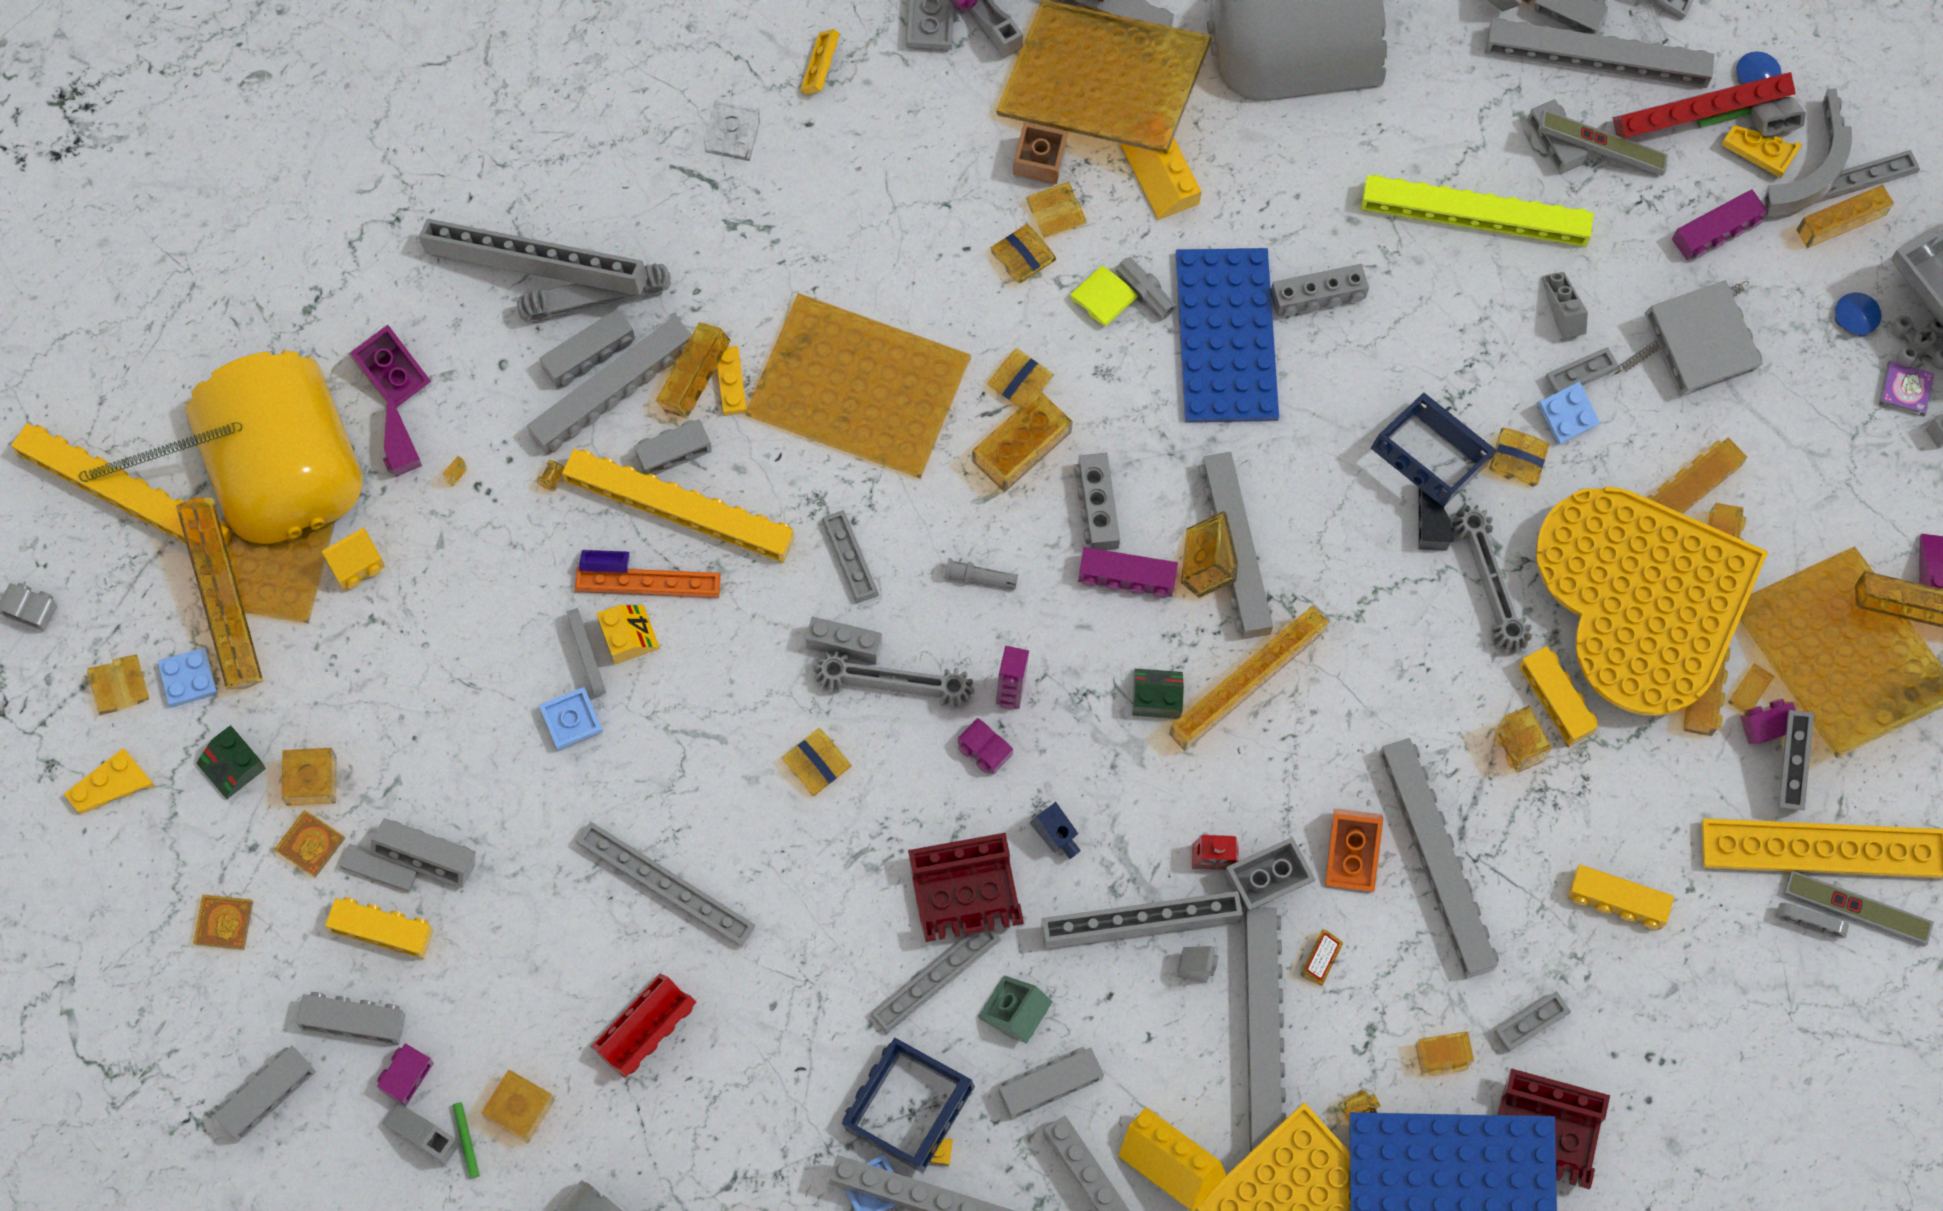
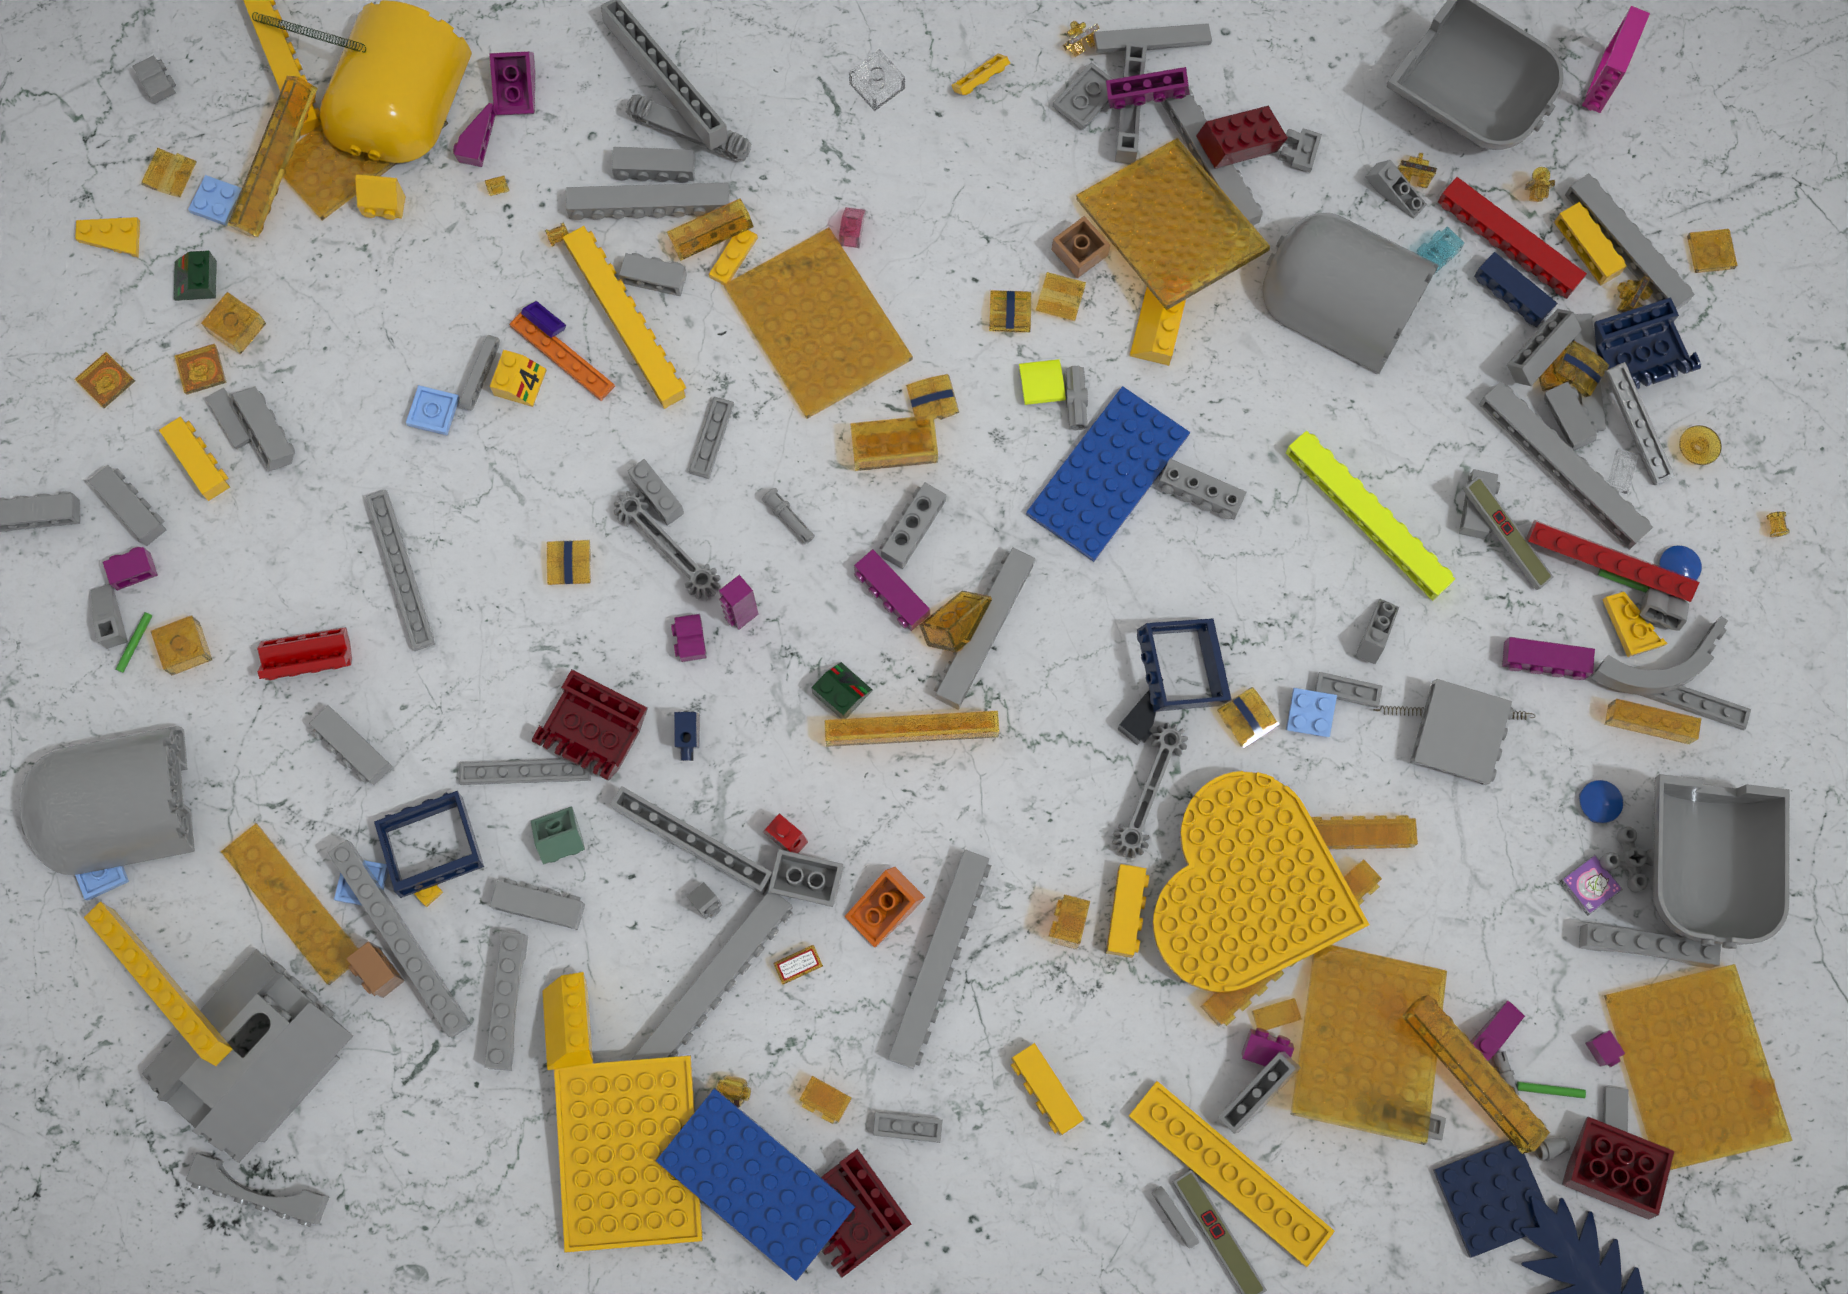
camera: 40 degrees right, 5 degrees up
(758, 1073) = (350, 745): none -> light grey brick
(819, 278) = (851, 227): none -> clear pink slope

